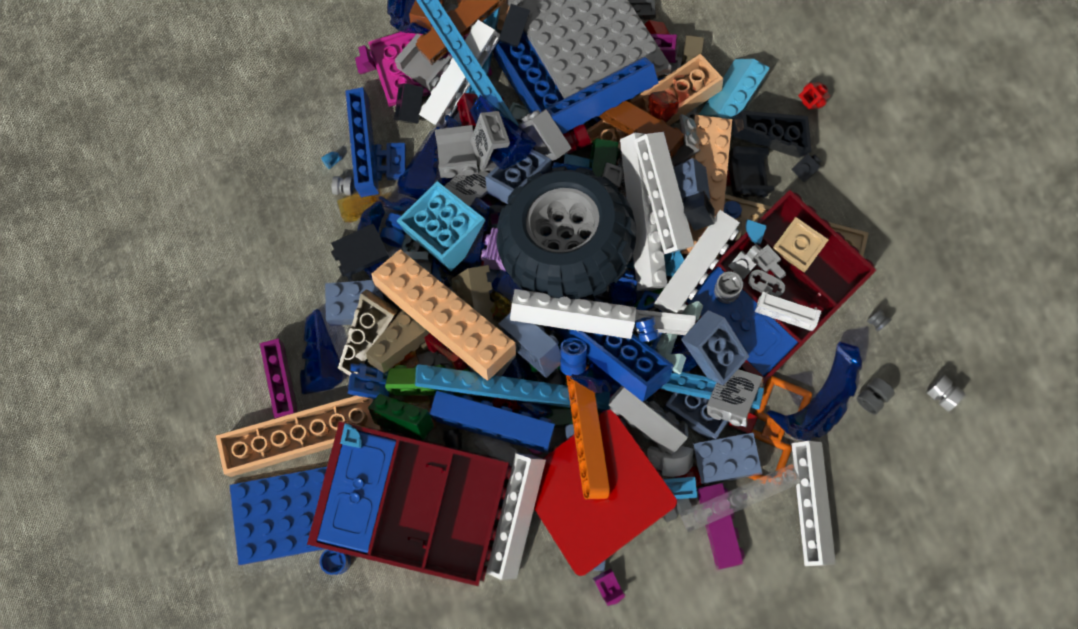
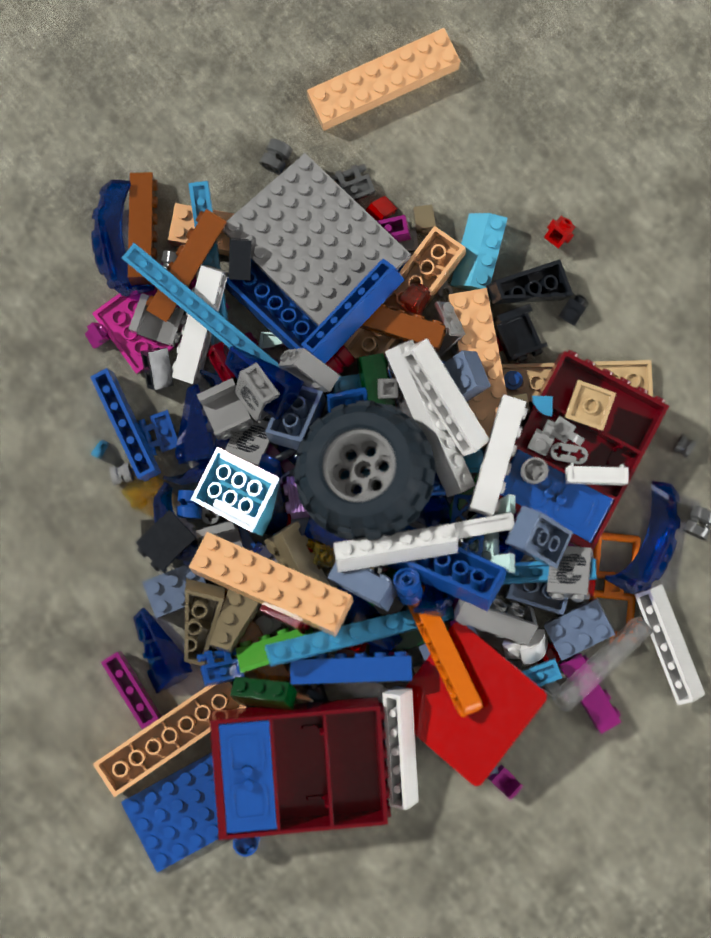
camera: 15 degrees left, 10 degrees up
(351, 436) = (226, 731): dark azure tile -> none
(647, 328) = (469, 539): blue wheel -> none
(699, 211) = (484, 403): black piece -> none

